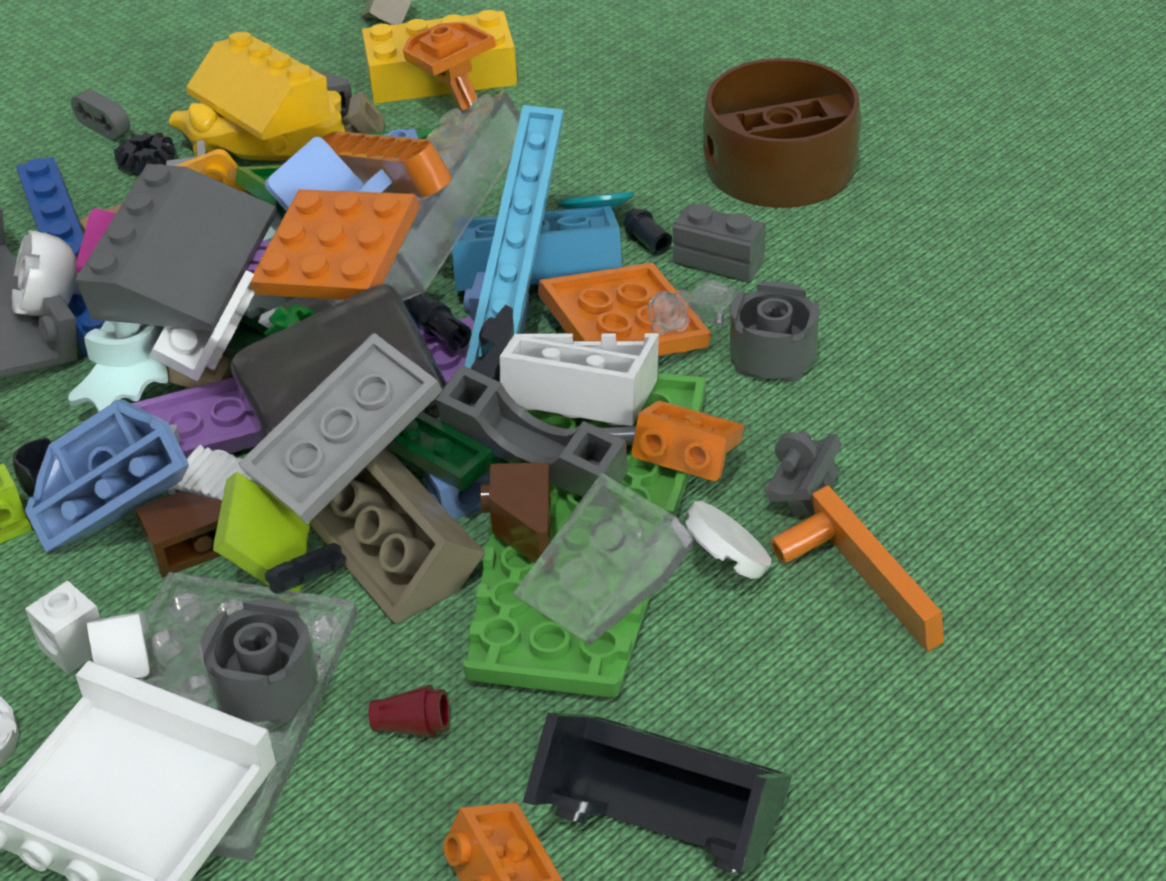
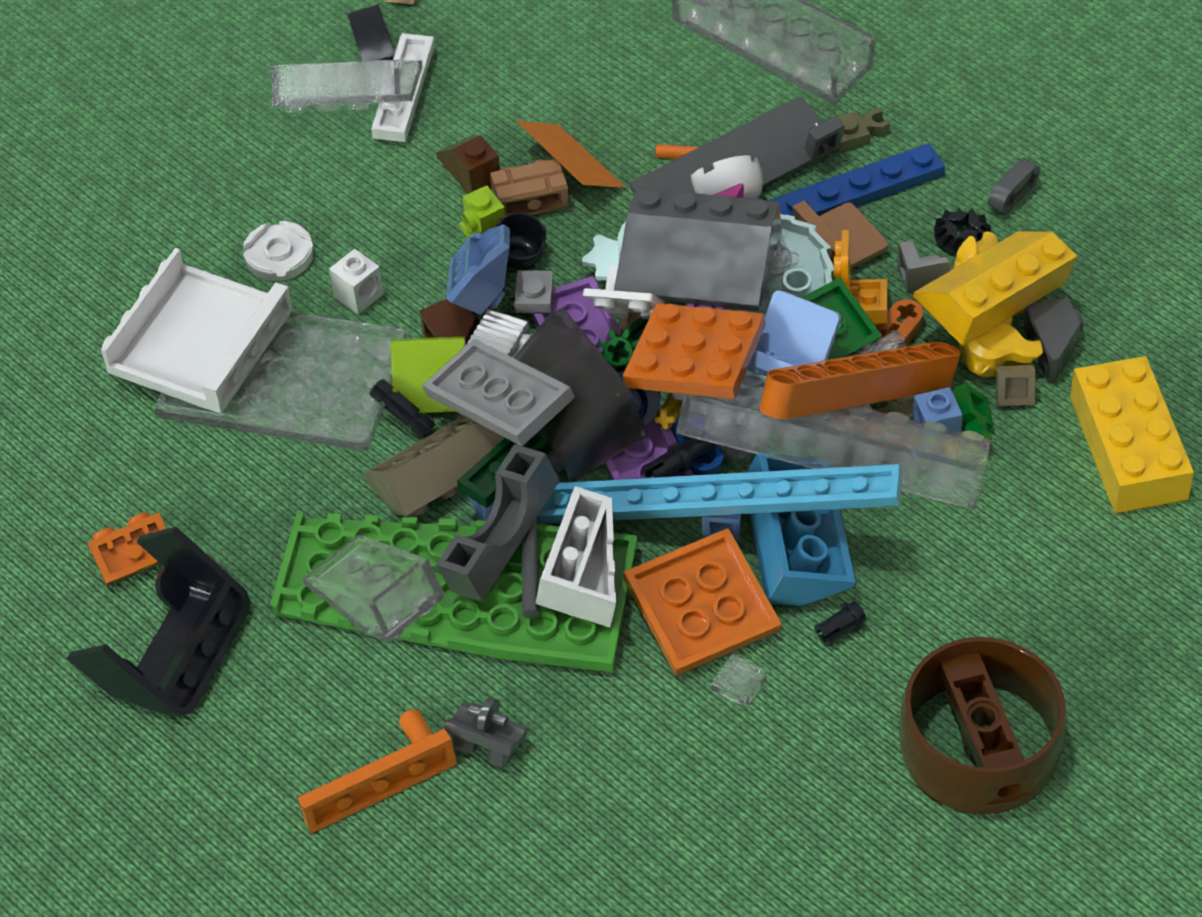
camera: 90 degrees right, 10 degrees up
(120, 643) = (326, 302): white panel -> none
(260, 661) = (285, 383): dark grey brick -> none
(413, 712) = (264, 489): dark red cone -> none
(447, 53) = (1084, 423): orange piece -> none
(494, 338) = (620, 488): black slope -> none
(519, 506) = (431, 526): reddish brown slope -> none
(612, 199) = (881, 575): teal dish -> none
(660, 308) = (676, 623): clear plate -> none
(685, 439) = (519, 640): orange bracket -> none
(719, 242) = (810, 676): dark grey brick -> none
(726, 539) = (403, 671): white tile -> none
(774, 331) = (668, 714): dark grey brick -> none

